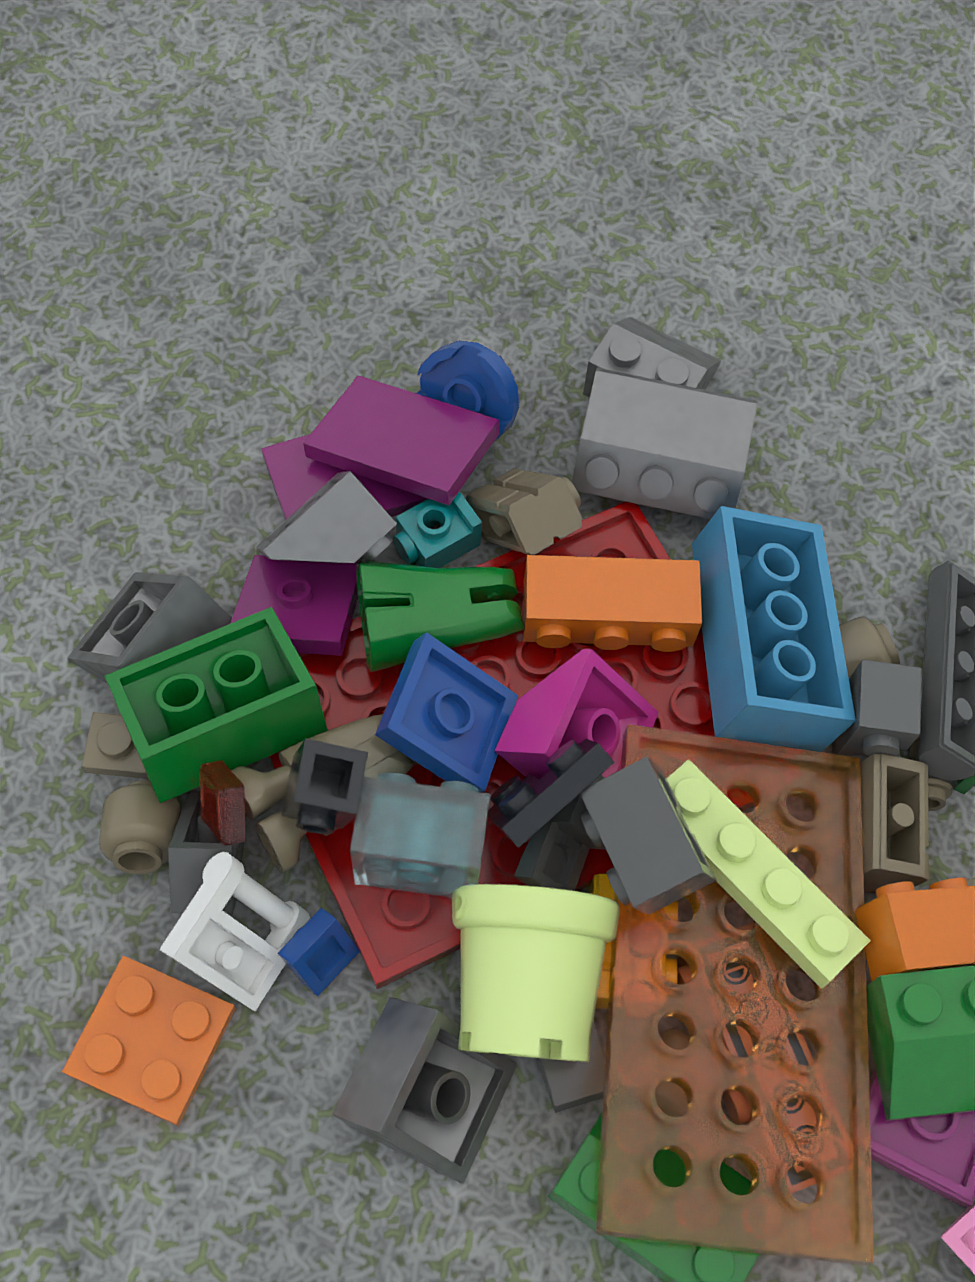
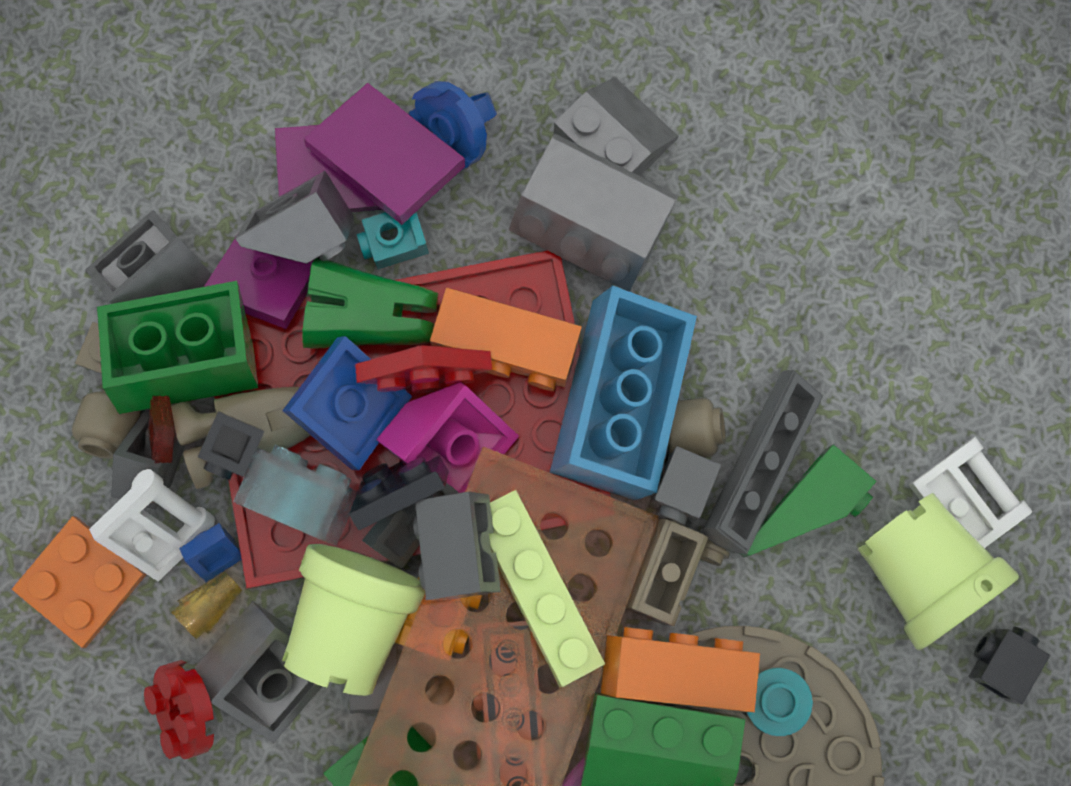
camera: 20 degrees right, 15 degrees up
(326, 1024) = (206, 605): none -> clear yellow cone
(340, 1194) = (181, 710): none -> red plate
(526, 510) = (463, 242): dark tan brick -> none
(532, 642) = (423, 368): none -> red plate

